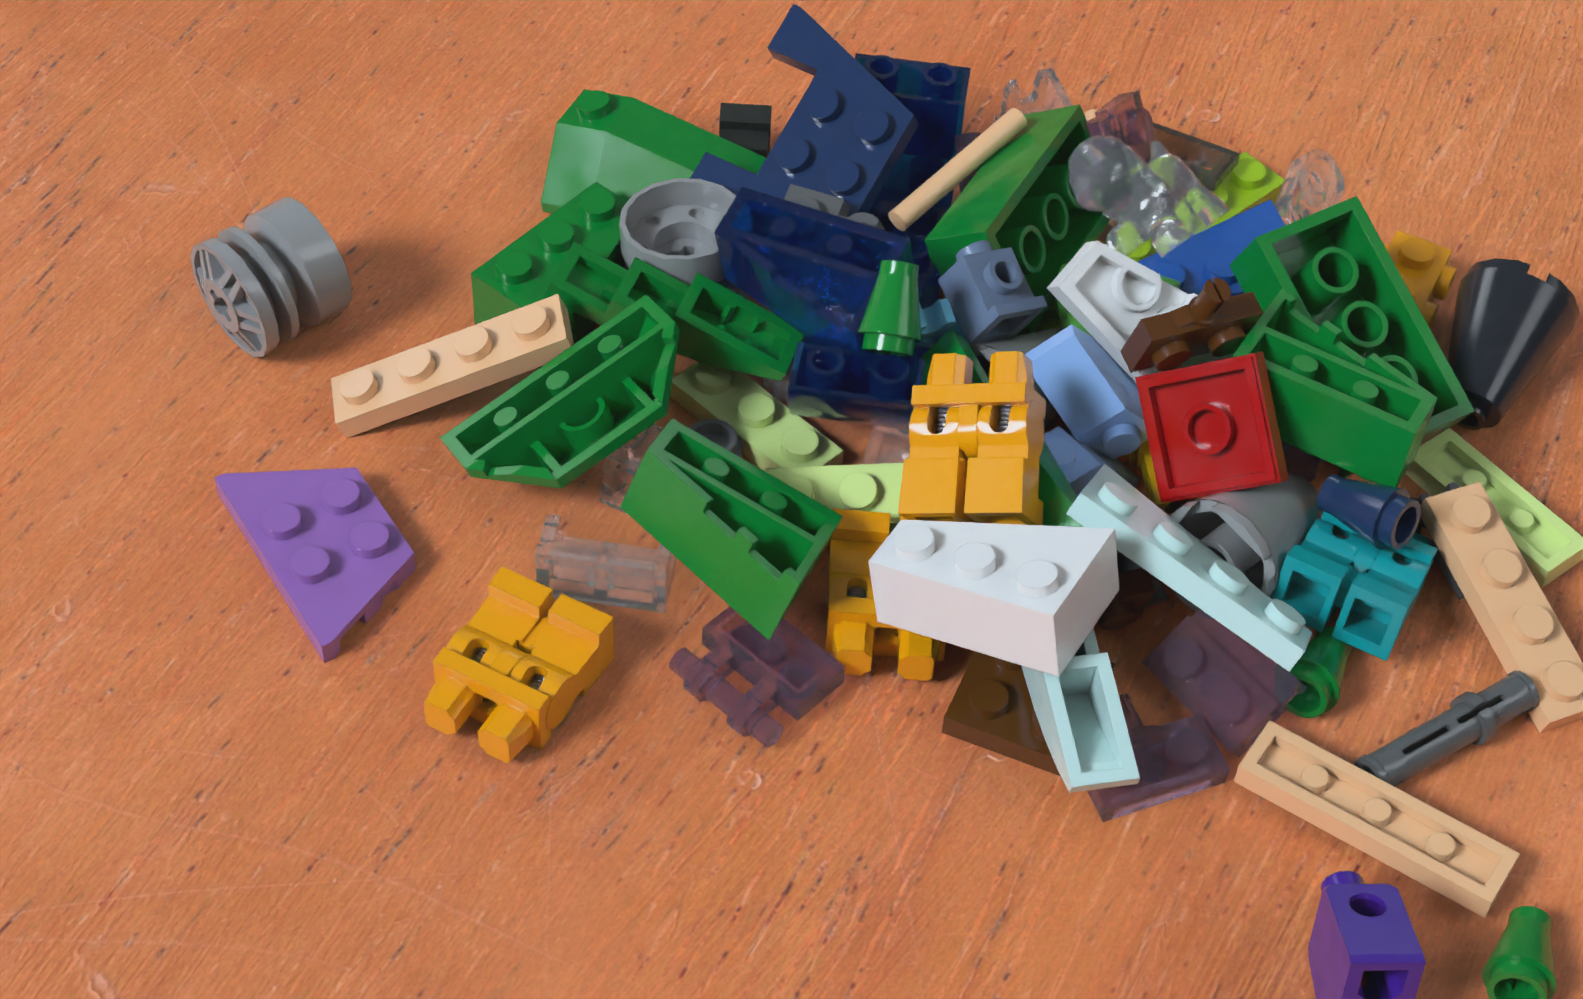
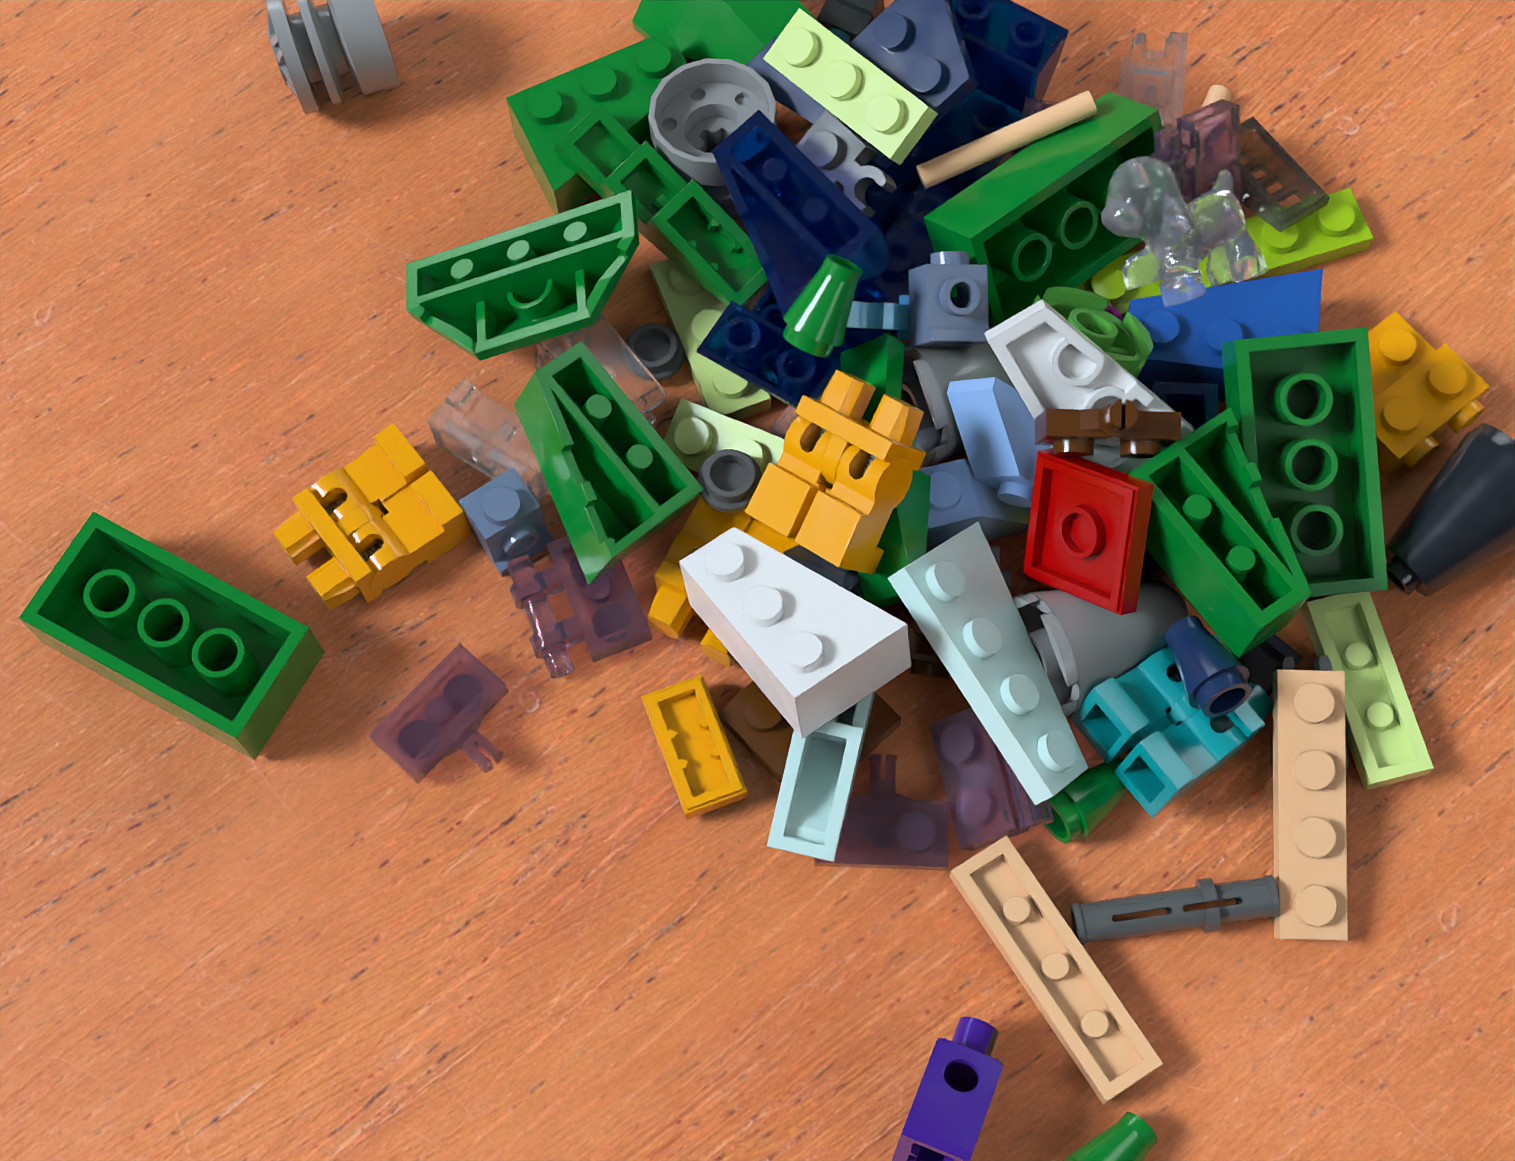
camera: 30 degrees right, 20 degrees up
(321, 545) = (273, 331): medium lavender wing -> none
(366, 825) = (173, 635): none -> green brick
(451, 366) = (452, 190): light nougat plate -> none
(652, 621) = (506, 520): none -> sand blue brick
(679, 813) = (443, 717): none -> plate
(806, 156) = (850, 86): none -> yellowish green plate
(862, 503) = (729, 480): none -> dark grey plate
(938, 753) = (694, 747): none -> light orange plate
(1310, 186) = (1376, 276): clear plate -> none

